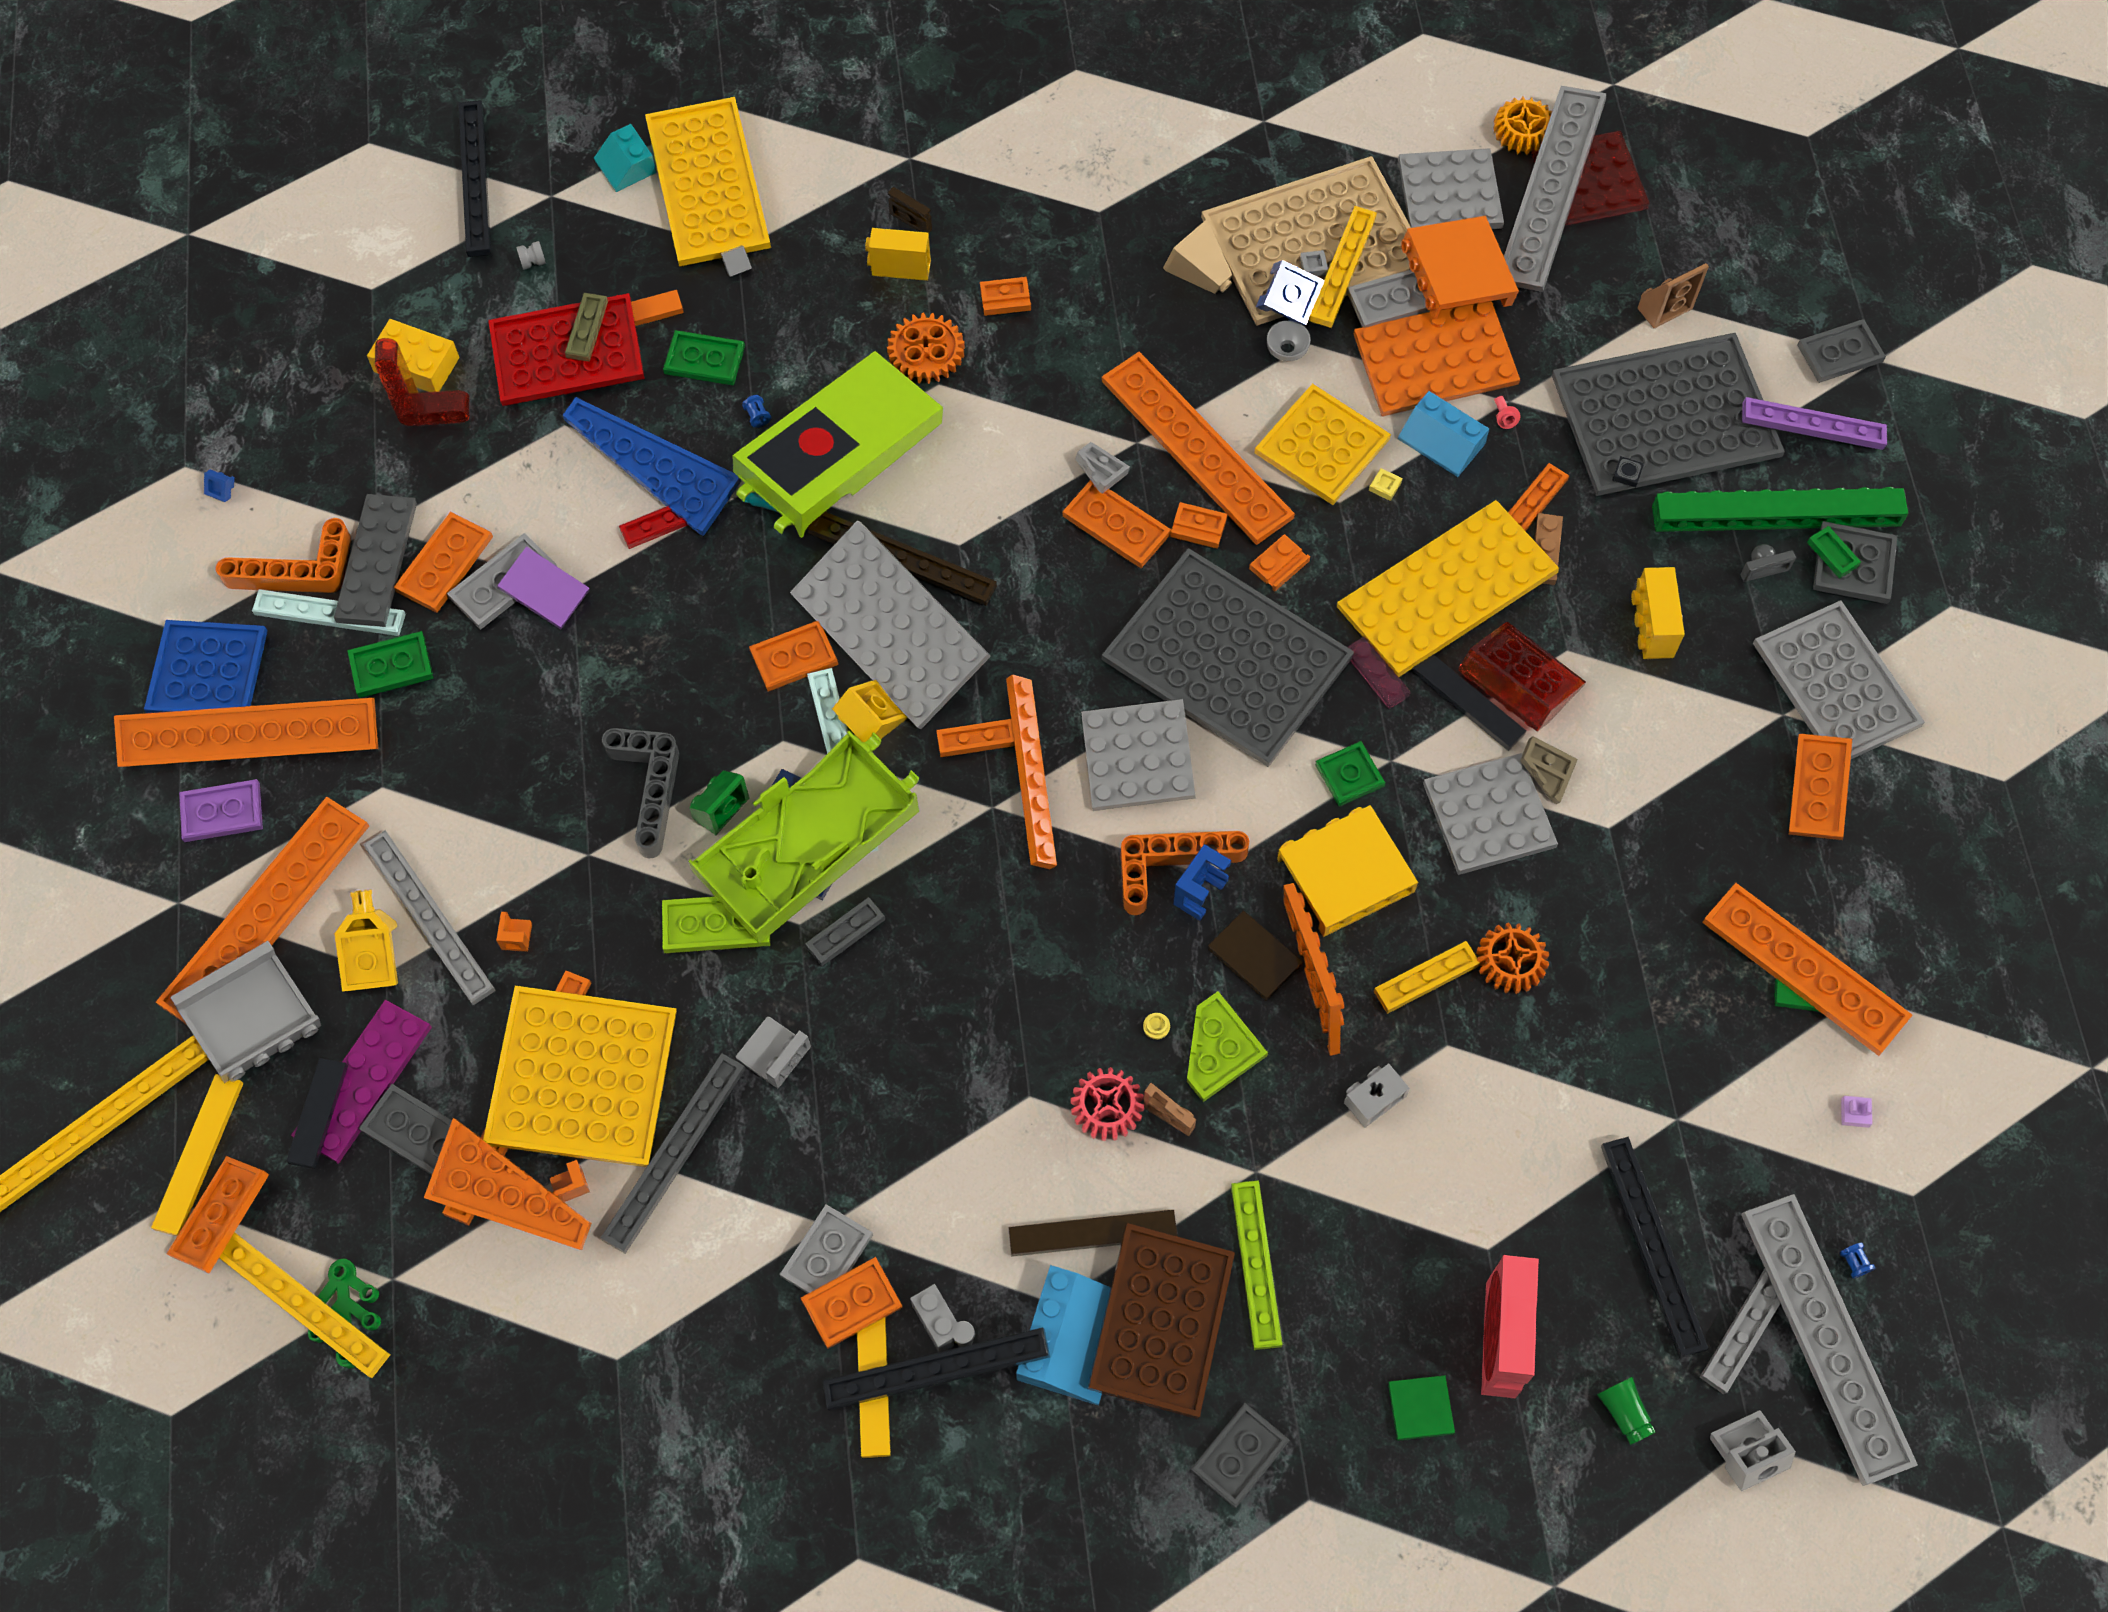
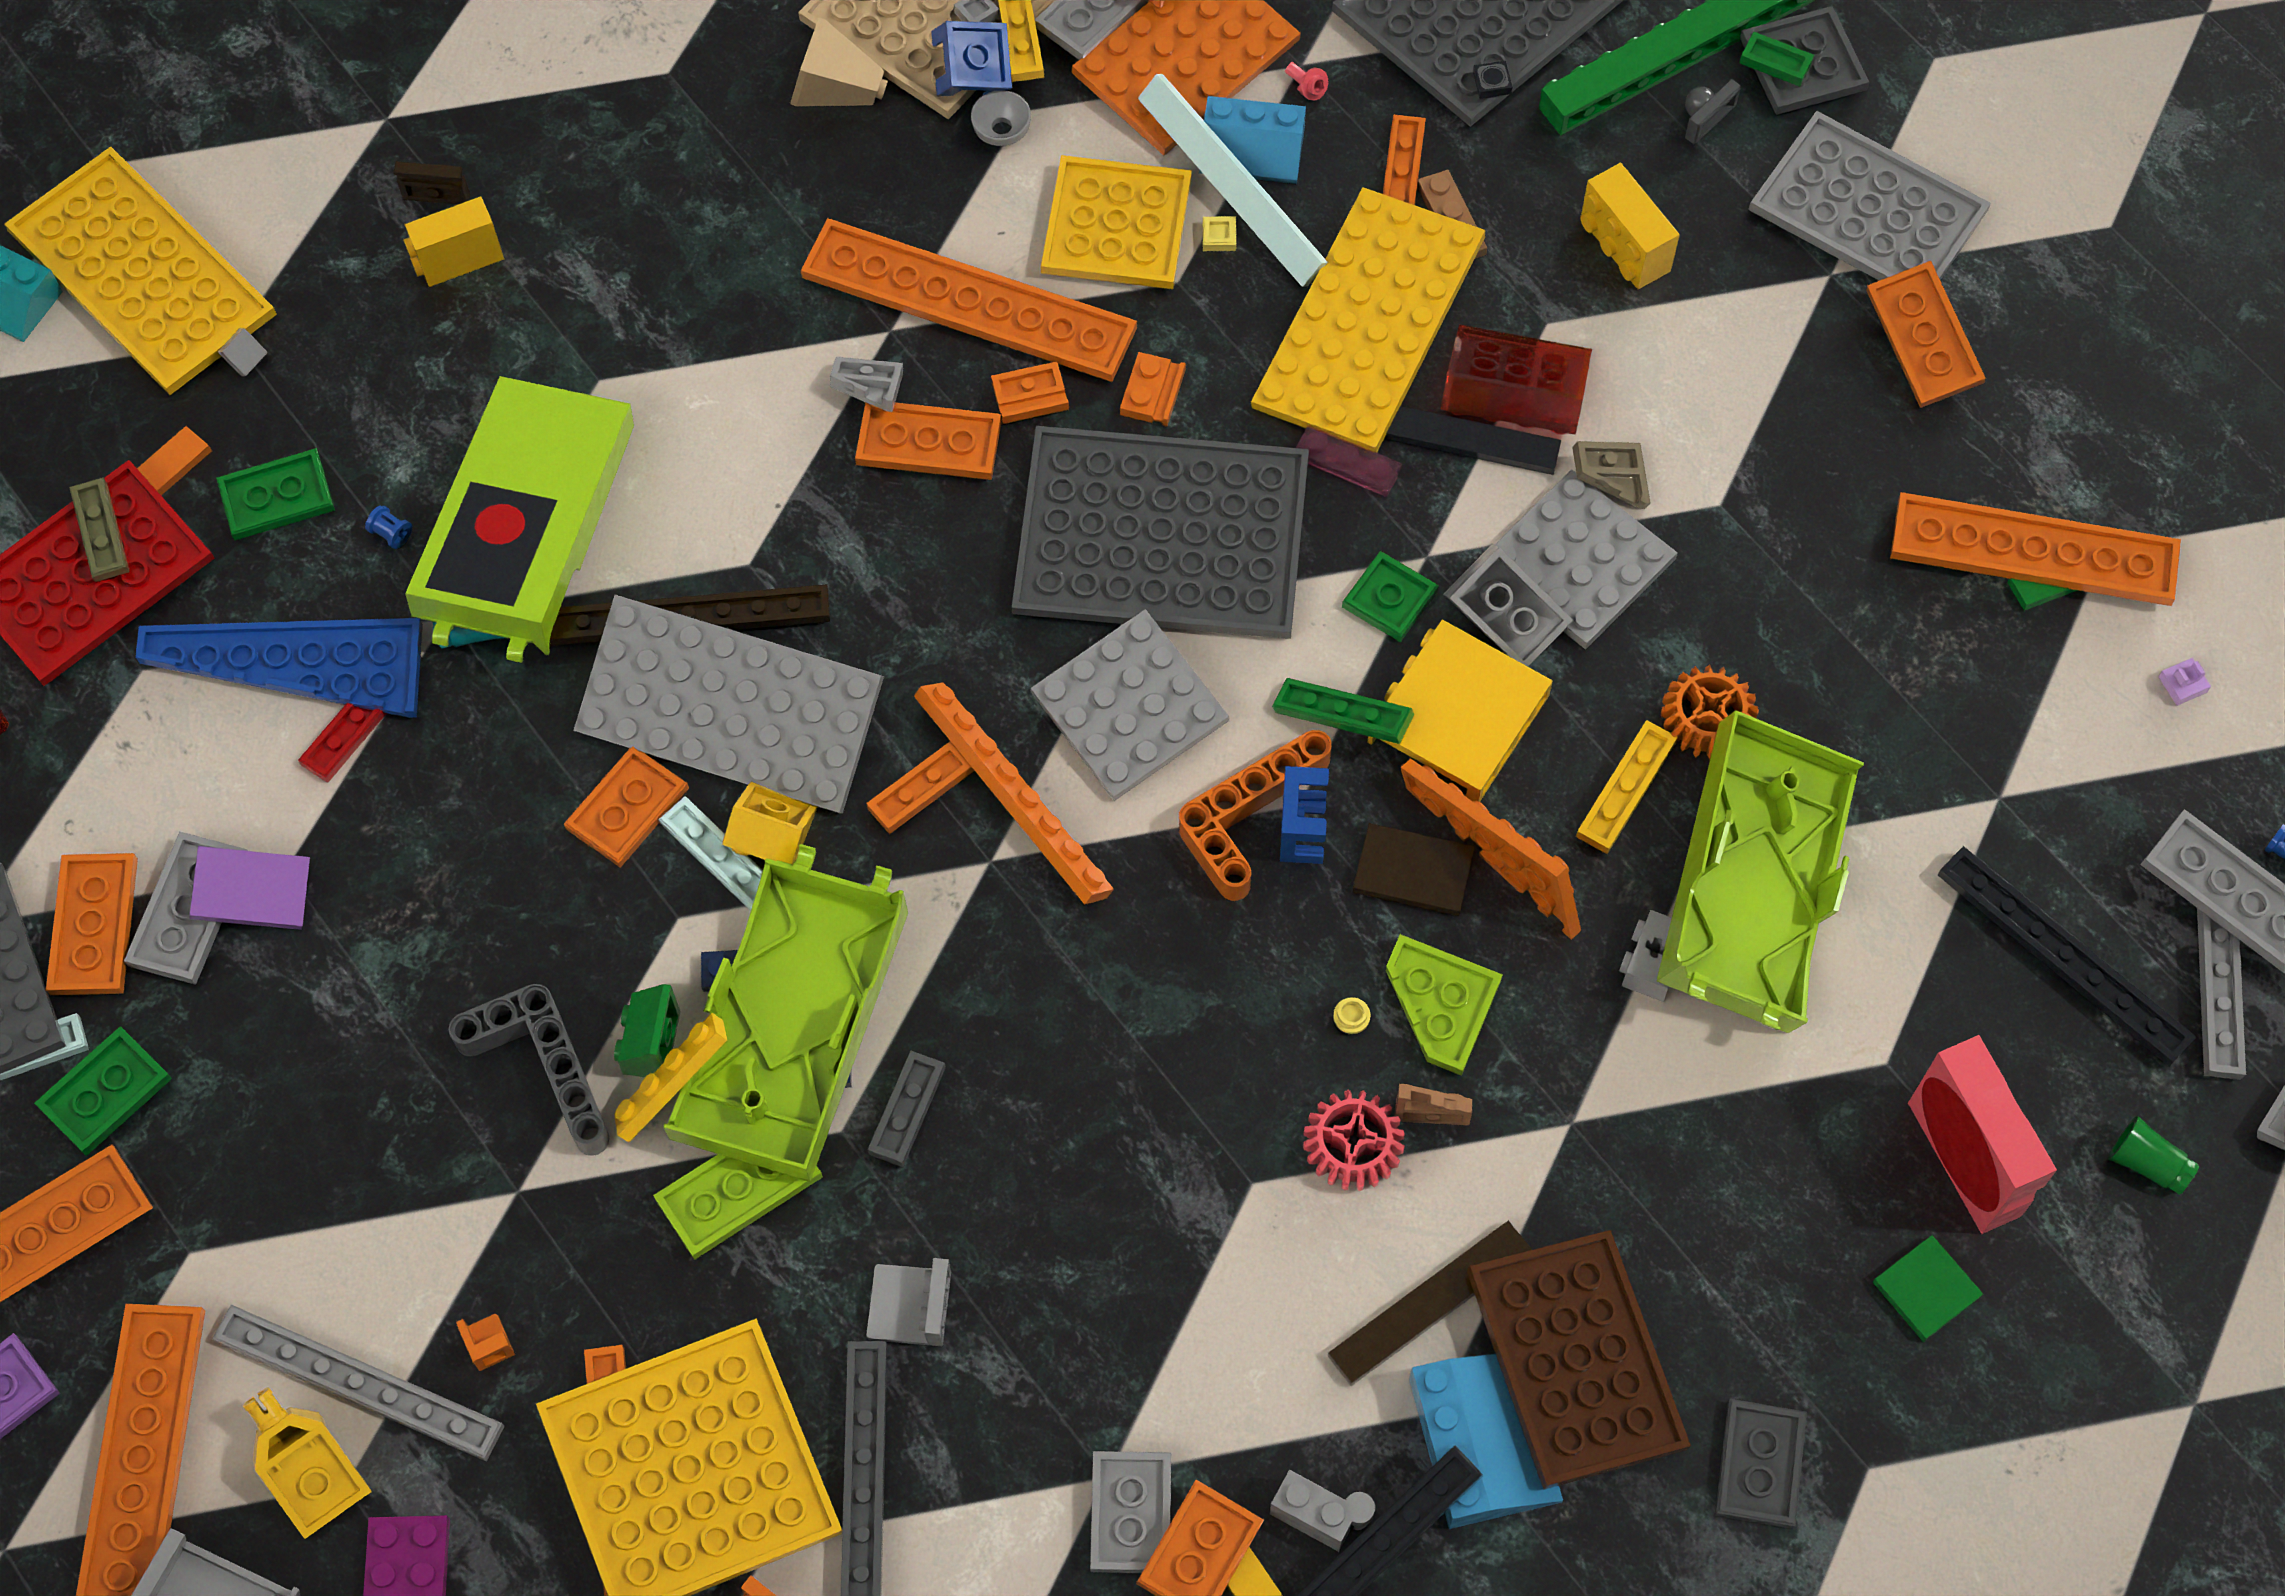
camera: 30 degrees left, 0 degrees up
(716, 831) = (670, 1077): none -> yellow plate
(926, 347) = (557, 342): orange gear -> none
(1005, 296) = (617, 231): orange plate -> none
(1256, 1265) = (1641, 1231): lime tile -> none
(1270, 830) = (1343, 710): none -> green tile
(1412, 453) = (1232, 180): none -> light aqua tile
(1420, 820) = (1508, 606): none -> light grey slope
(1477, 1079) = (1760, 872): none -> lime piece

